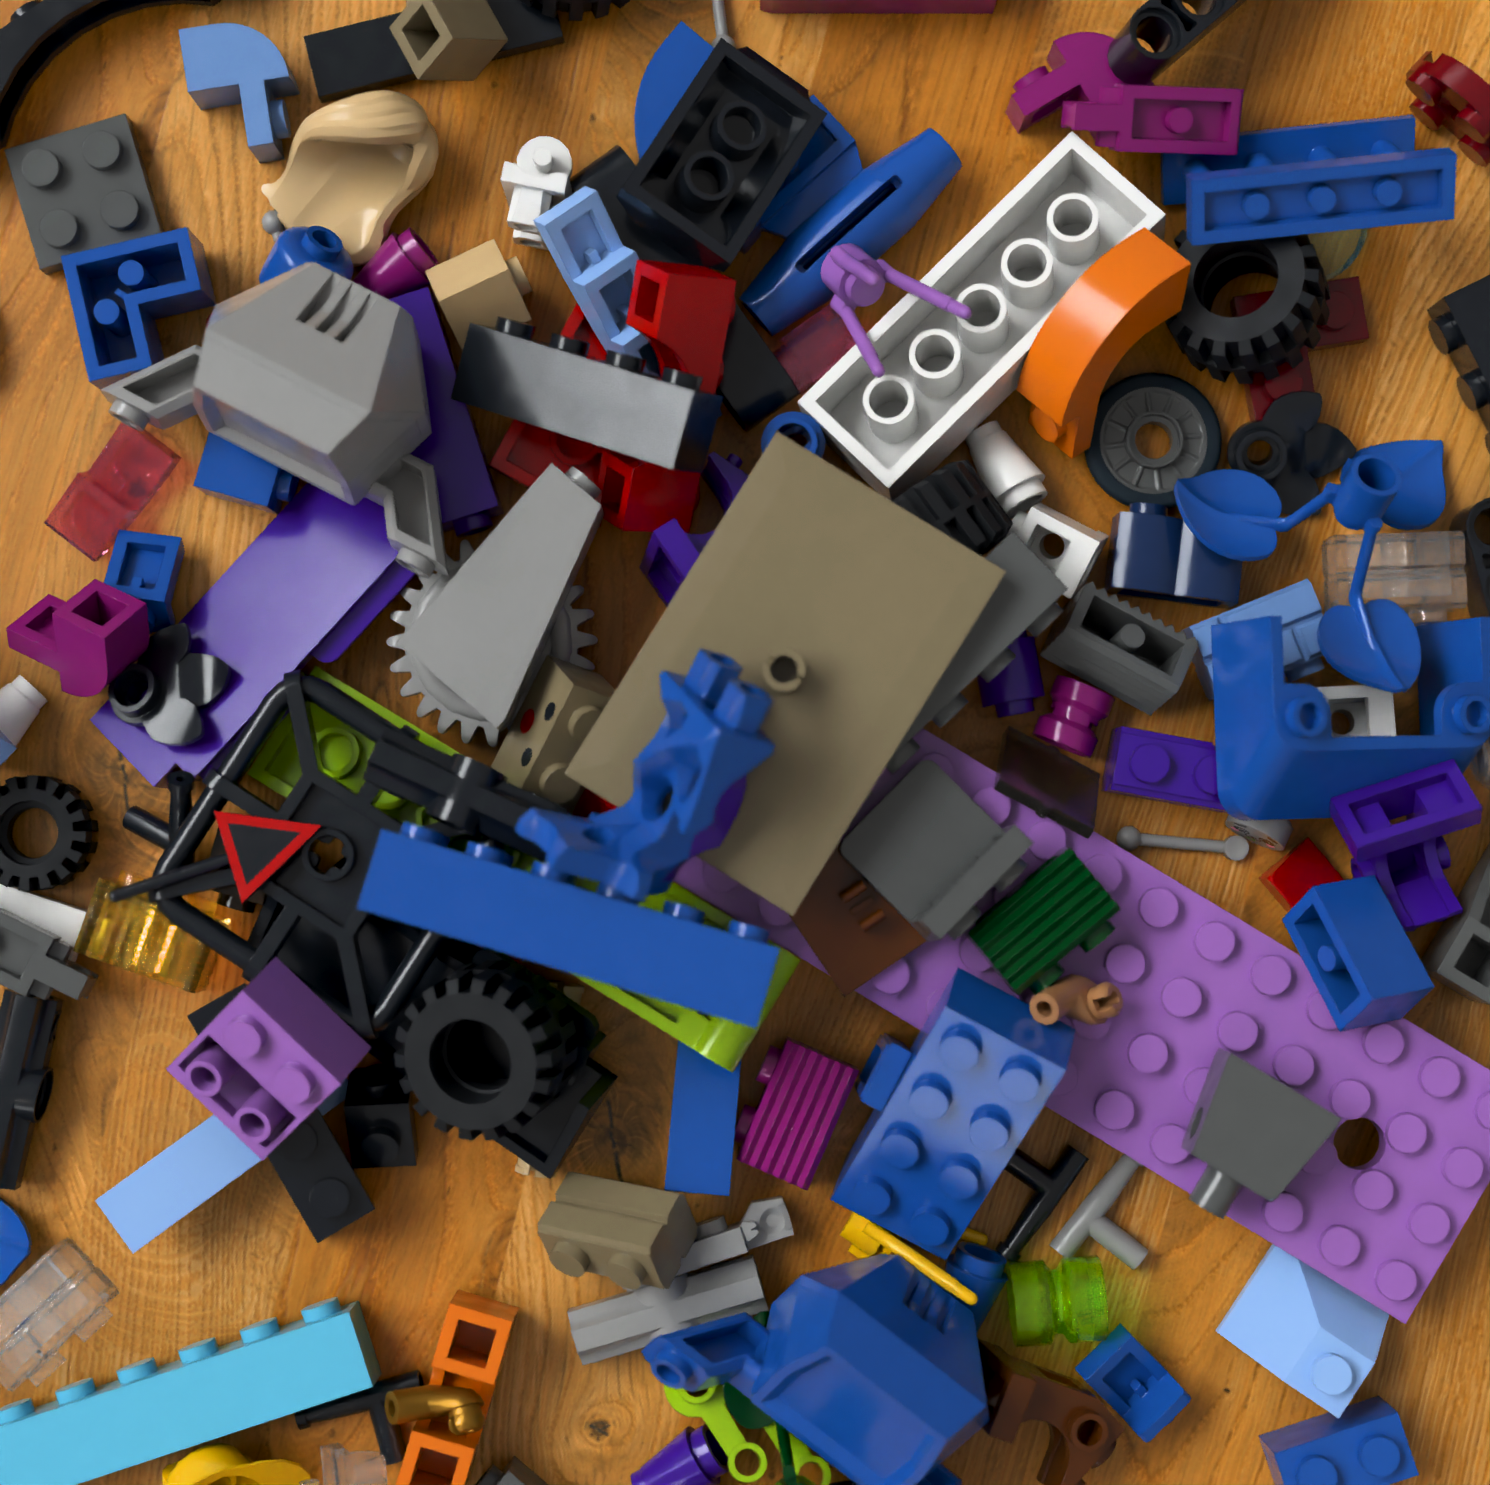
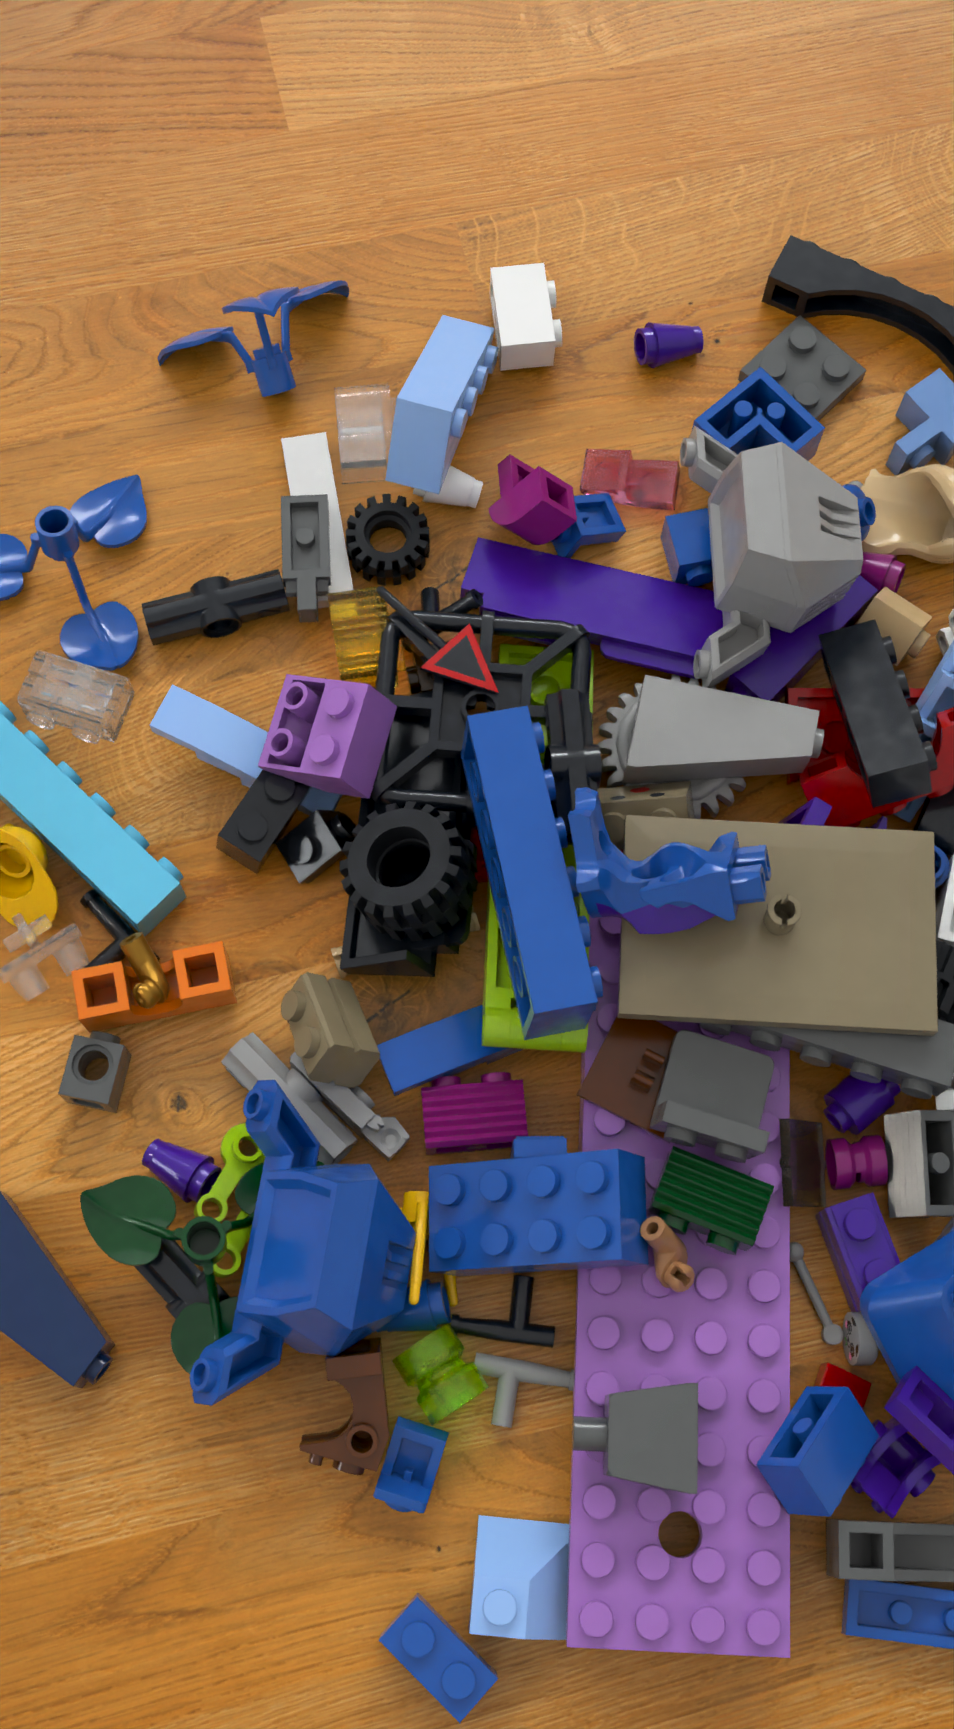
camera: 60 degrees right, 15 degrees down
(176, 684) = (528, 566): black plate -> none

